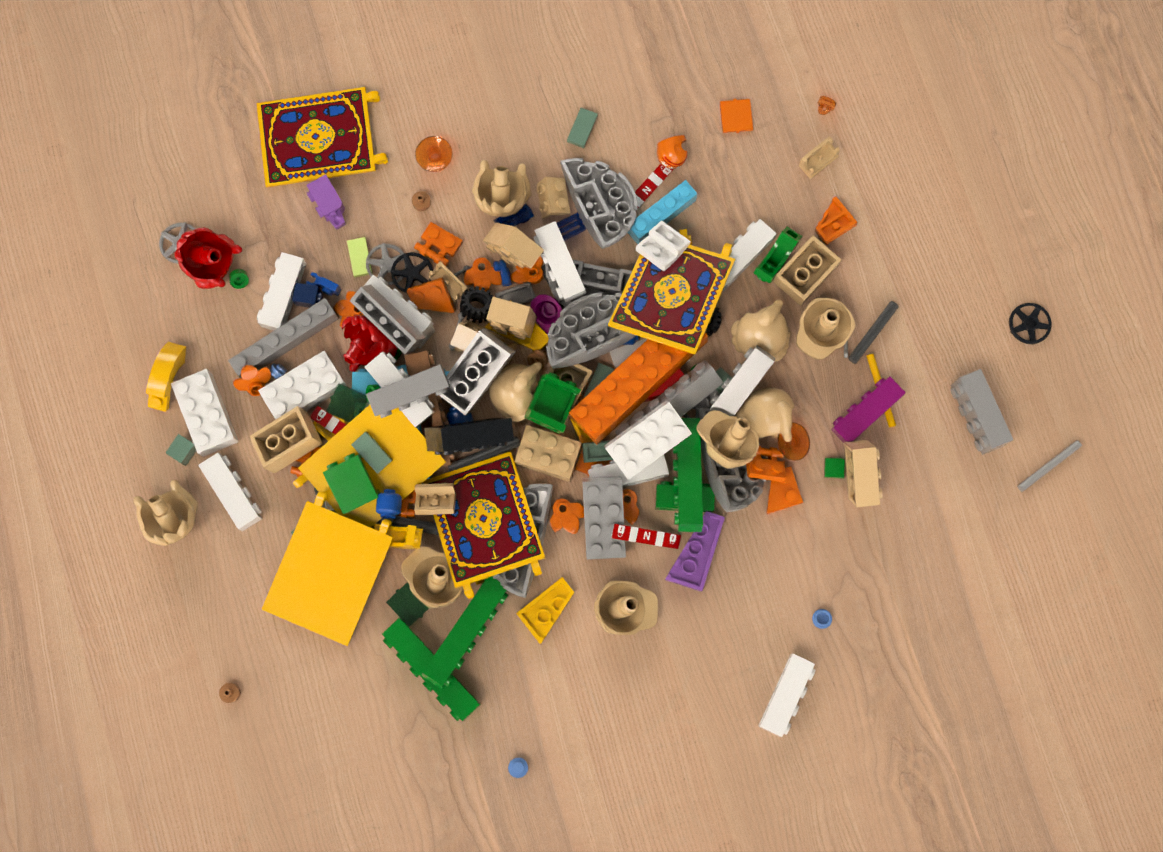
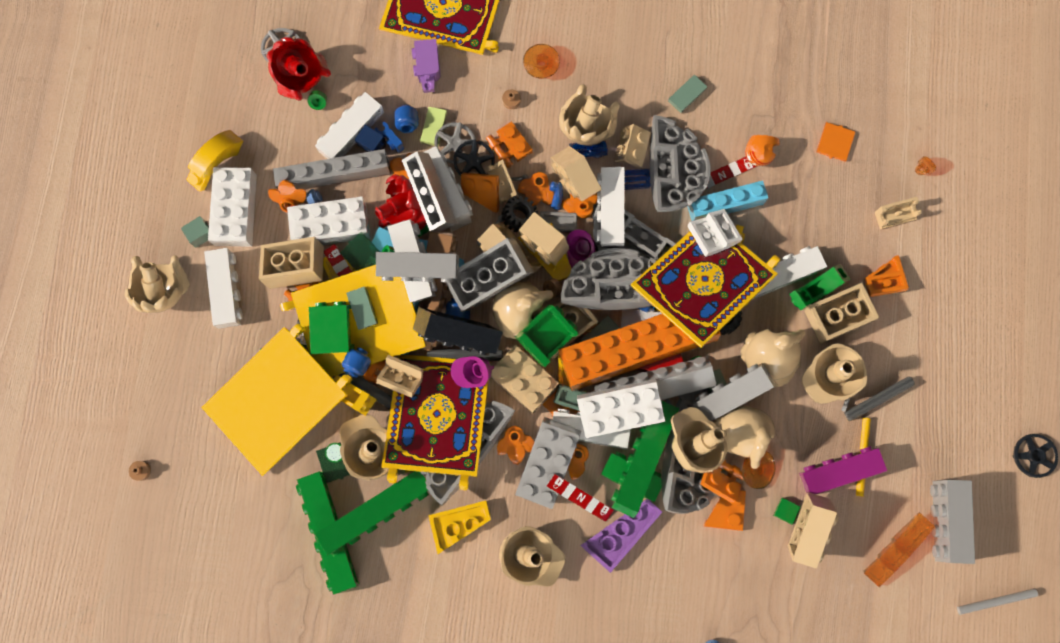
camera: 25 degrees right, 0 degrees up
(331, 261) = (406, 119): none -> blue head
(404, 596) = (333, 453): none -> light aqua tile
(497, 466) = (471, 371): none -> magenta piece
(946, 457) = (899, 549): none -> clear orange slope

